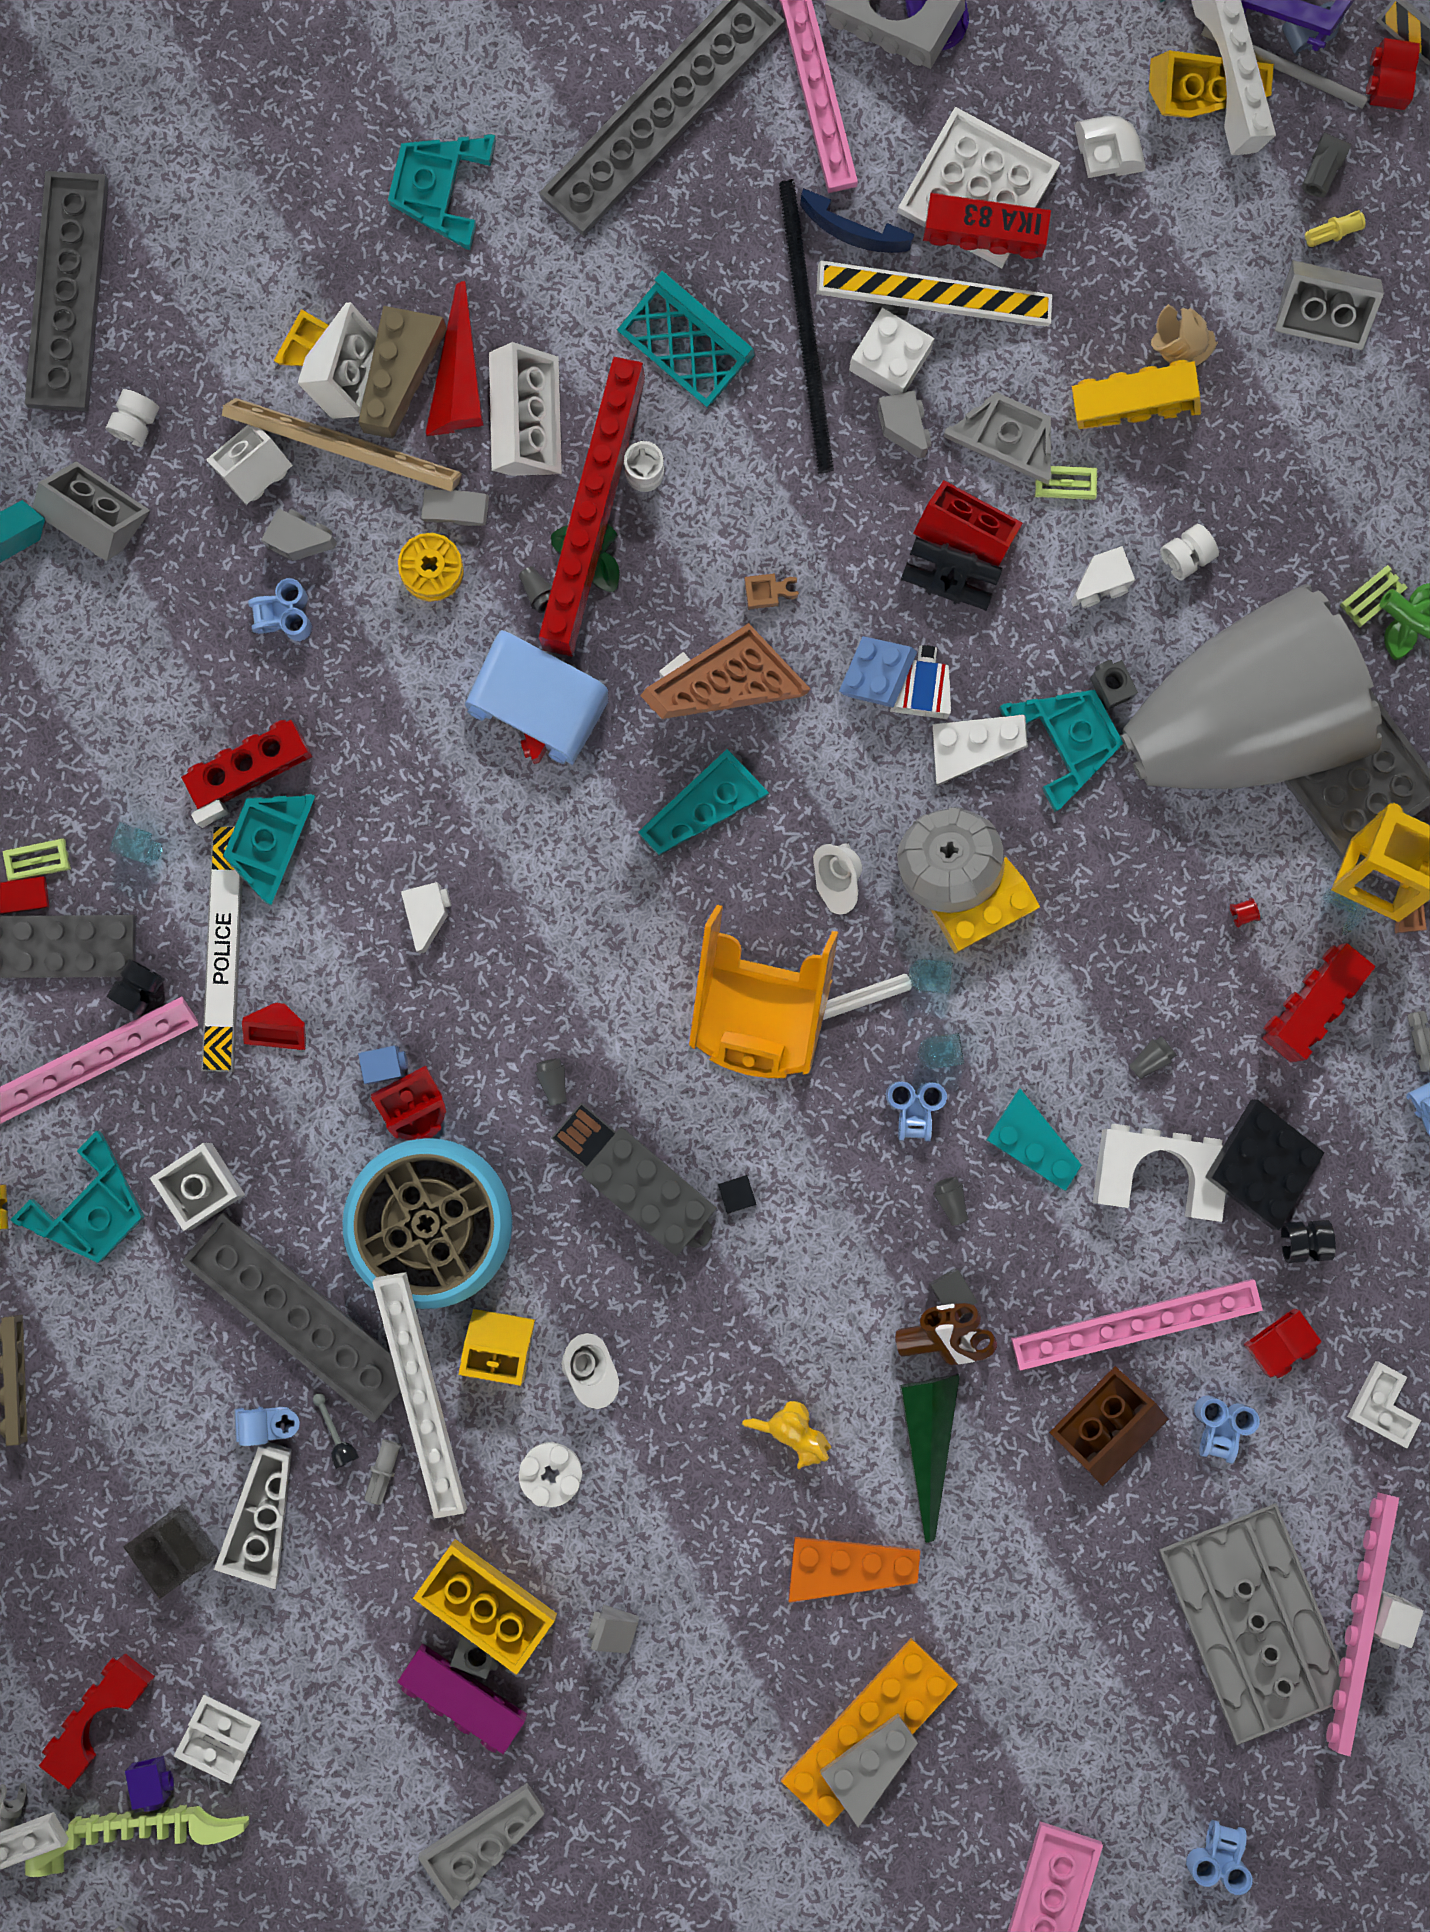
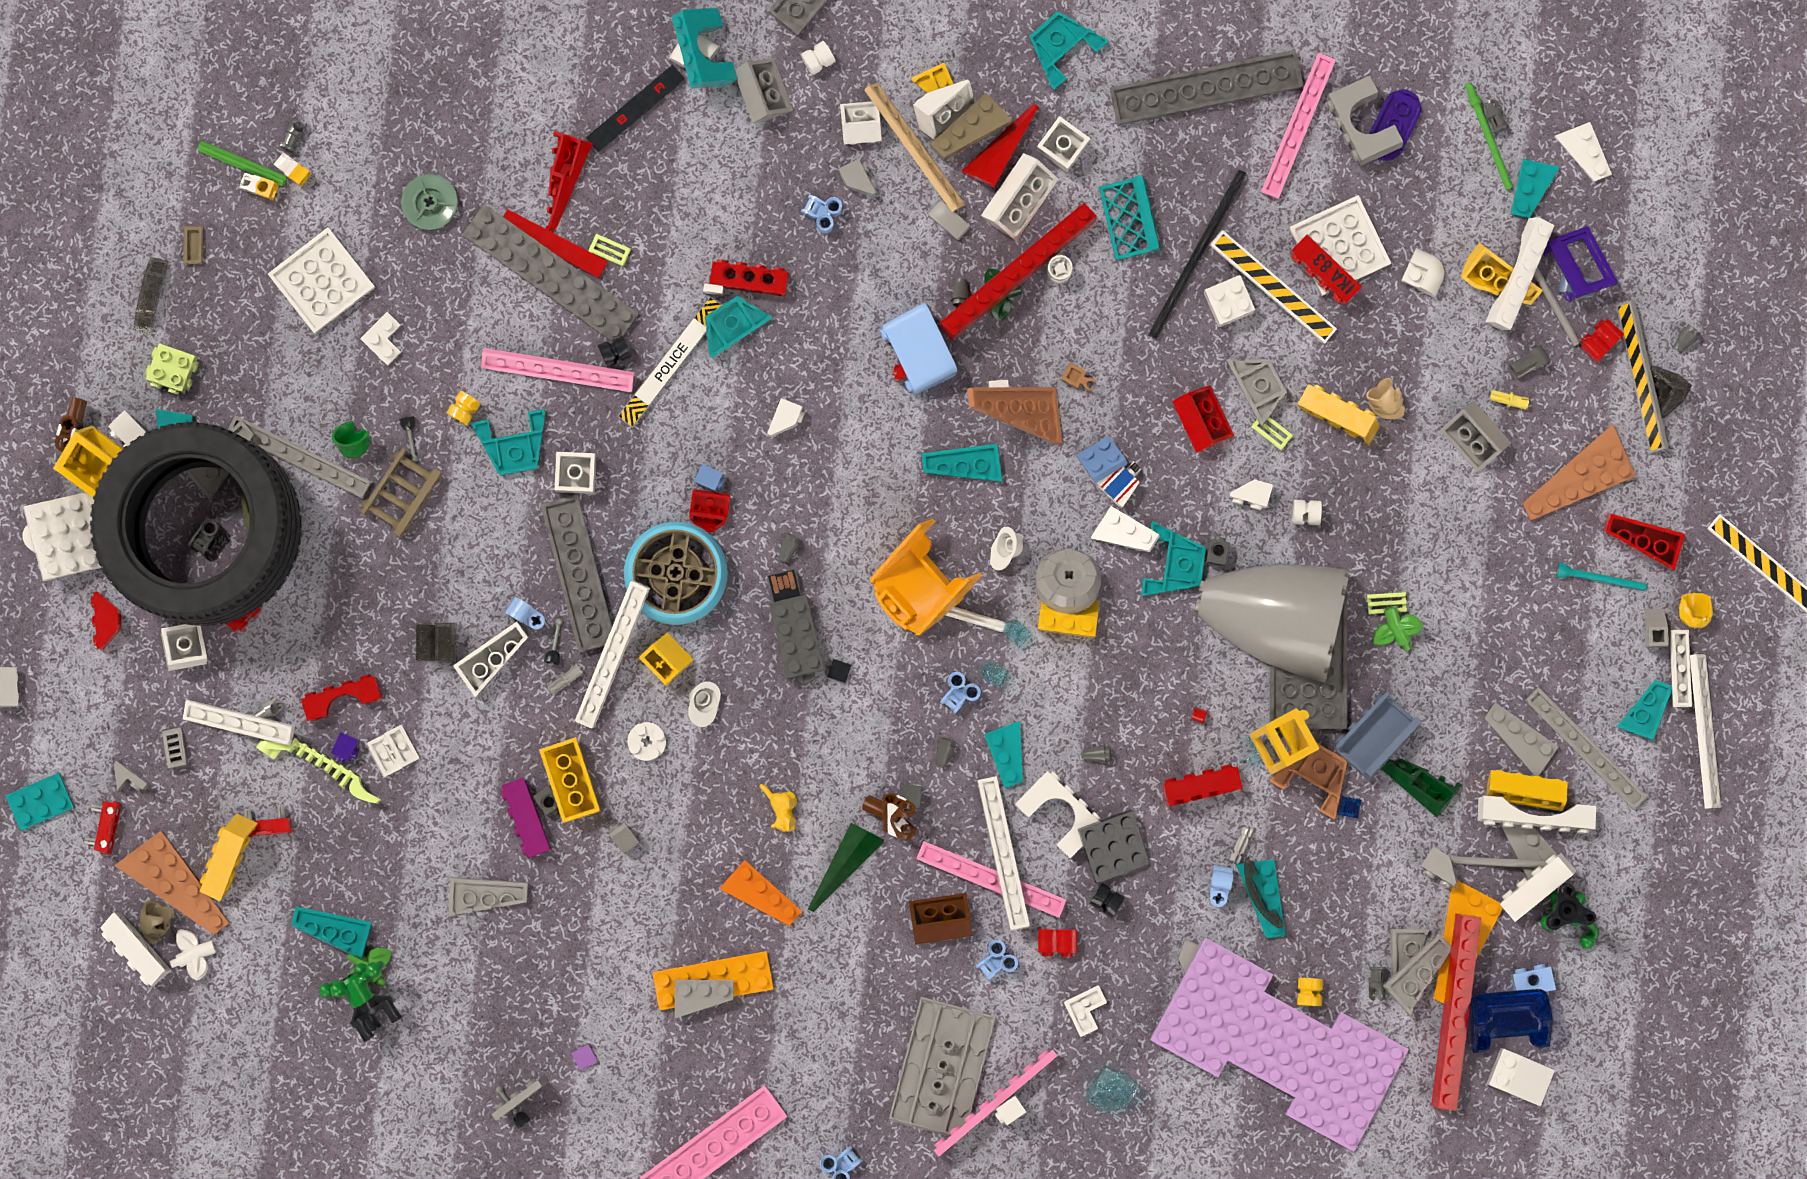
camera: 40 degrees right, 0 degrees up
(135, 845) = (665, 279): clear light blue brick -> none
(274, 1027) = (668, 420): red slope -> none
(424, 582) = (907, 251): yellow wheel -> none
(532, 304) = (1063, 144): none -> white brick
(889, 241) = (1272, 240): dark blue slope -> none
(902, 422) = (1209, 340): light grey slope -> none
(945, 560) = (1175, 436): black pin -> none
(1131, 1281) = (1003, 853): none -> white plate

